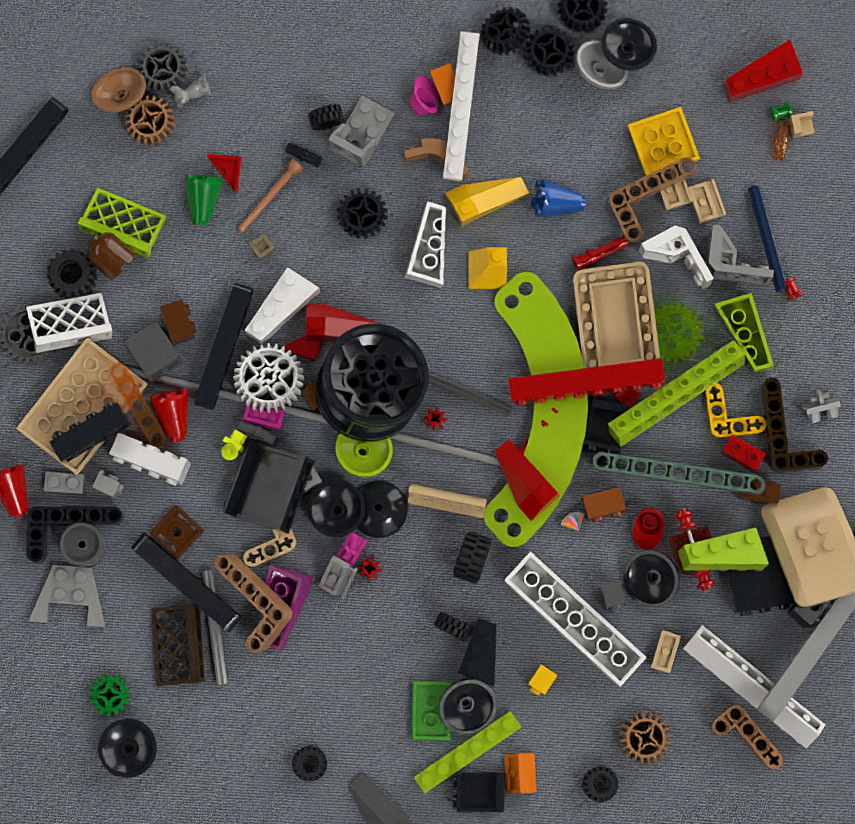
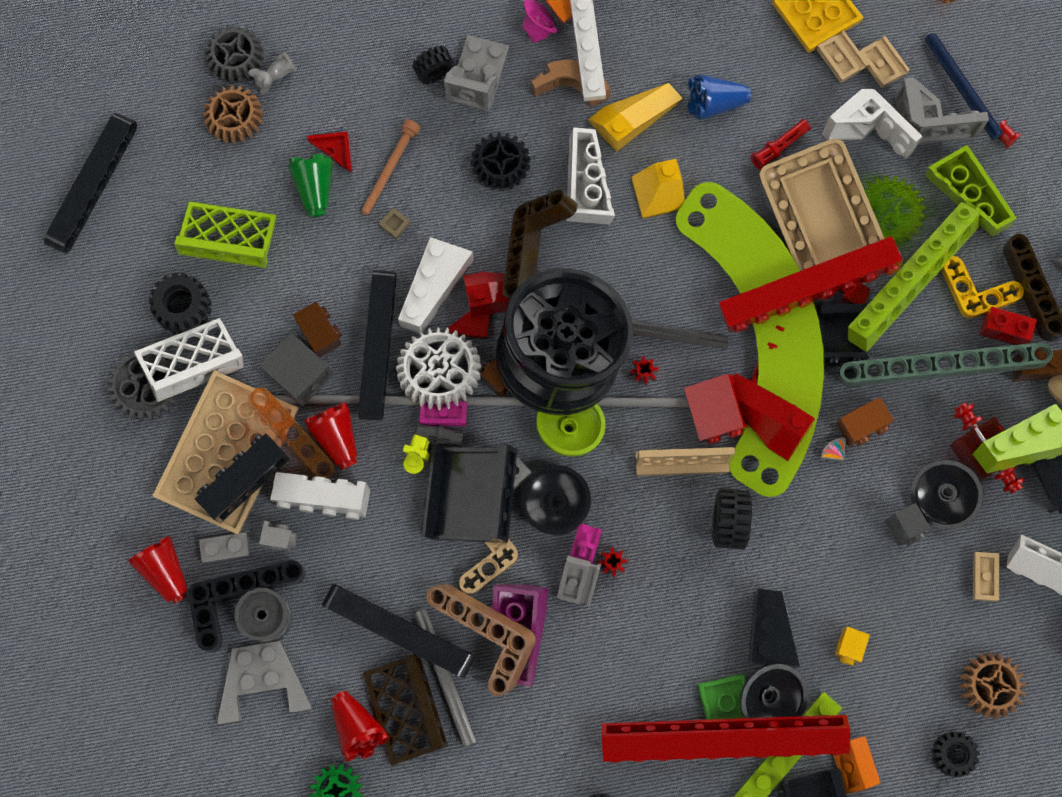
camera: 15 degrees left, 5 degrees down
(109, 254) = (218, 269): reddish brown cylinder -> none
(118, 90) = (189, 87): medium nougat dish -> none
(135, 650) = (356, 727): none -> red cone
(166, 528) = (365, 562): reddish brown piece -> none
(303, 154) = (417, 113): black axle -> none
(365, 287) = (526, 235): none -> dark brown beam
(393, 513) = (620, 499): black dish -> none
(420, 727) = (726, 738): none -> red brick
(452, 626) = (729, 606): black tyre -> none
(483, 465) = (715, 409): none -> red panel
(574, 619) = (872, 564): white brick -> none
(642, 183) = (815, 64): medium nougat beam -> none
(648, 528) = (924, 437): red cap -> none

